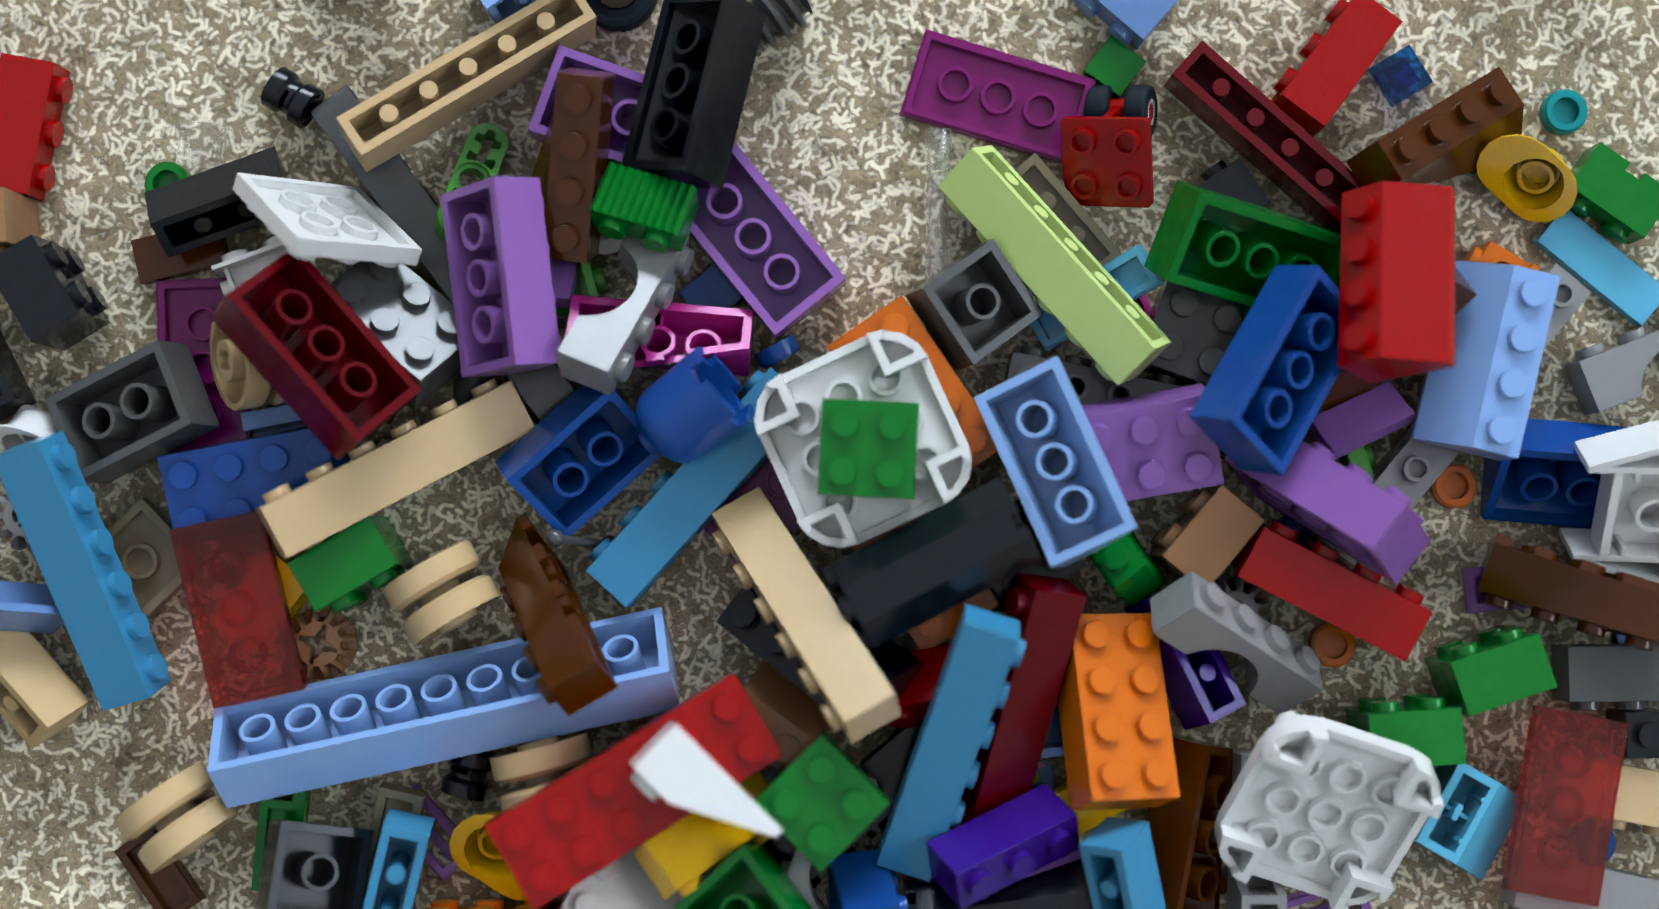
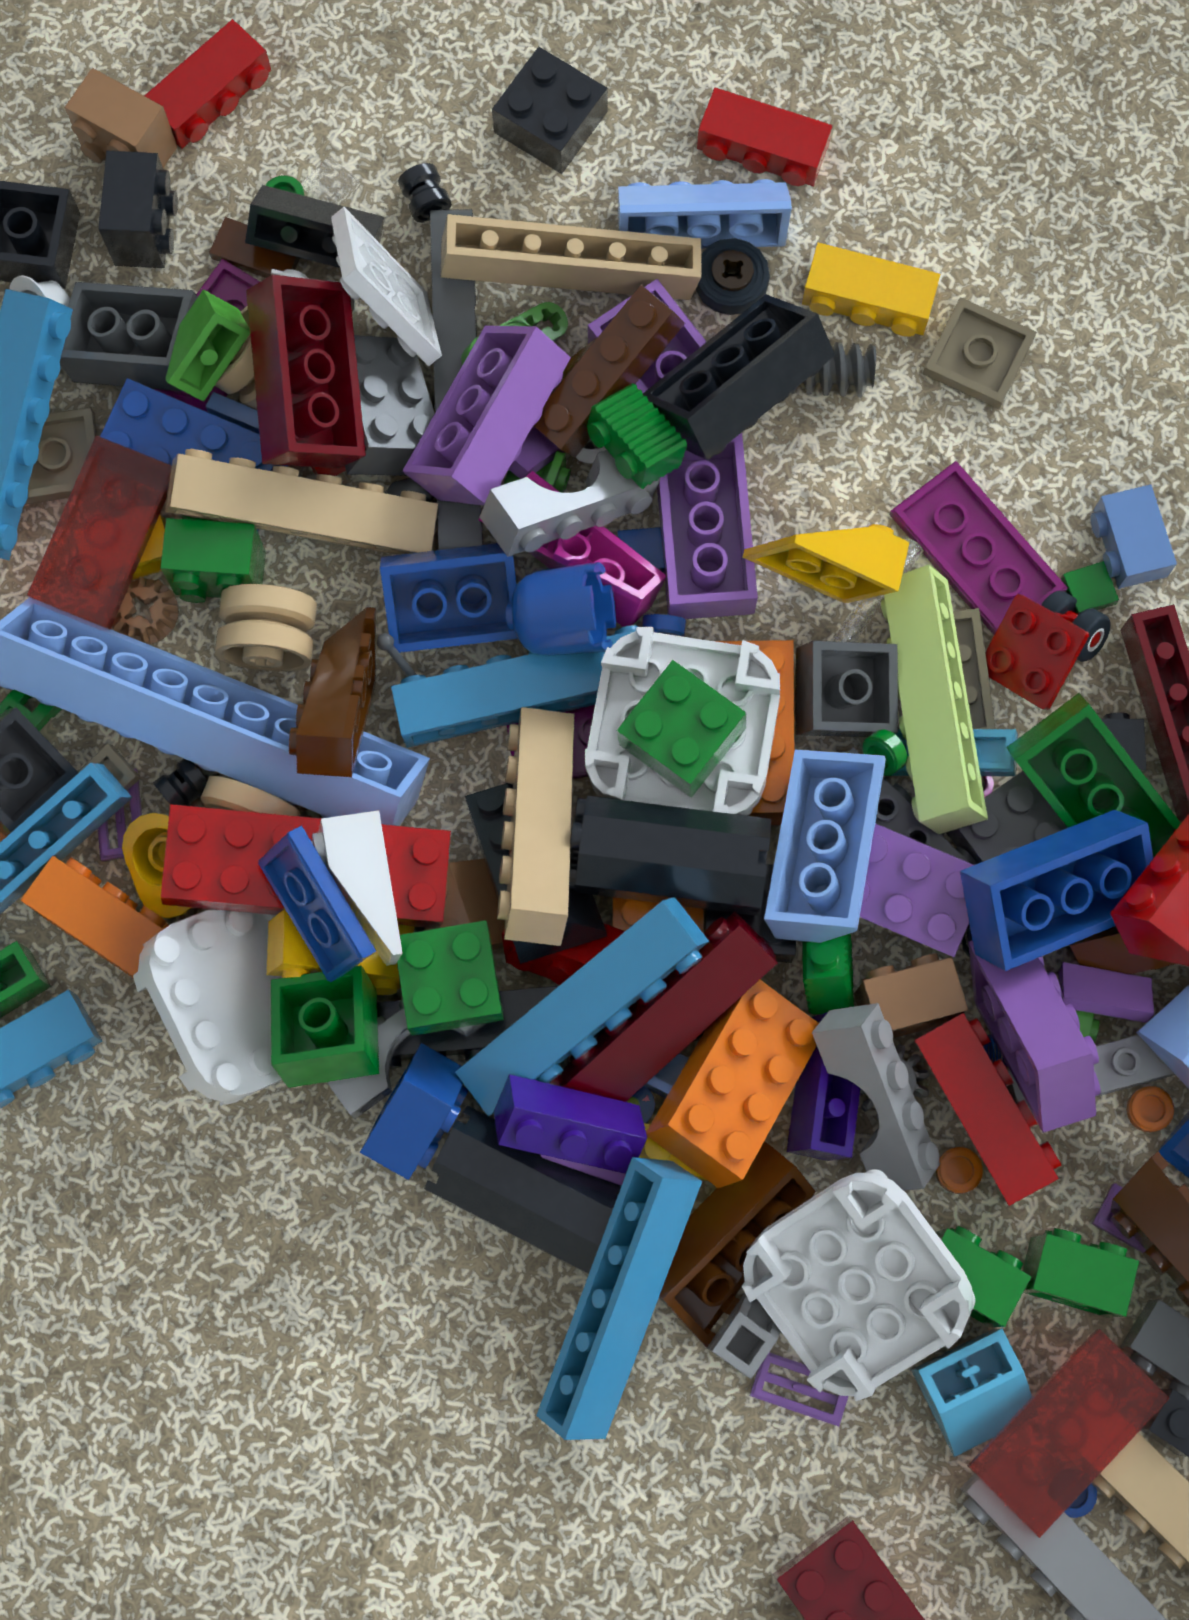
camera: 35 degrees right, 10 degrees down
(207, 383) = (206, 345): none -> bright green slope
(675, 833) = (316, 904): none -> blue tile
(894, 195) = (838, 563): none -> yellow slope
(1045, 340) = (889, 745): none -> green tile

